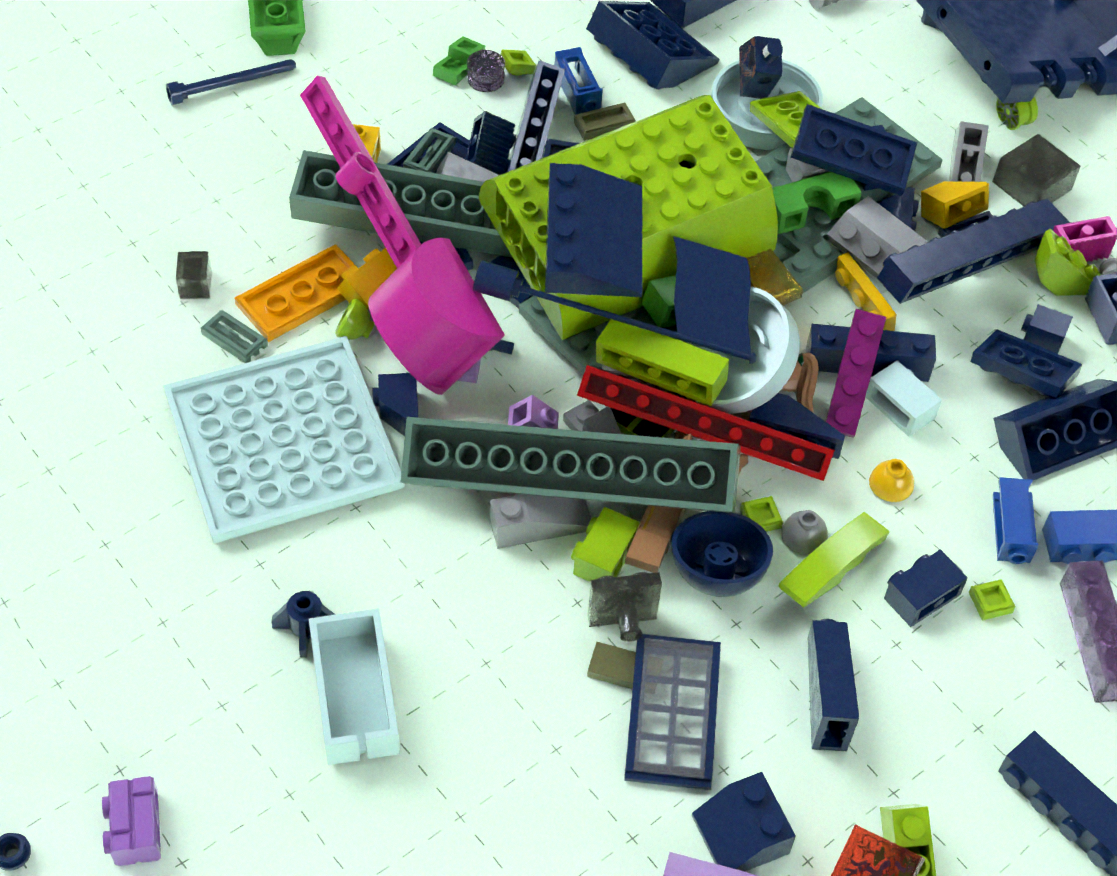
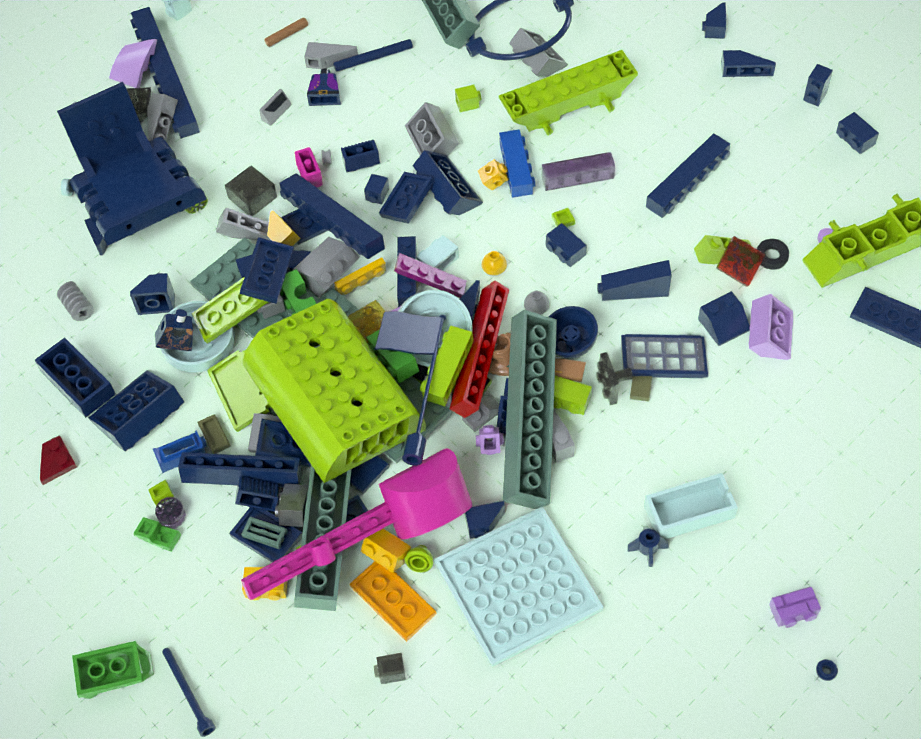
camera: 90 degrees left, 5 degrees up
(230, 340) = (428, 649): sand green tile -> none
(593, 233) = (387, 389): dark blue slope -> none
(832, 559) = (556, 285): lime slope -> none
(837, 56) = (153, 295): none -> dark blue slope
(1014, 521) = (514, 206): blue window -> none
(1062, 268) = (331, 178): lime slope -> none
(1082, 490) = (493, 174): none -> yellow brick

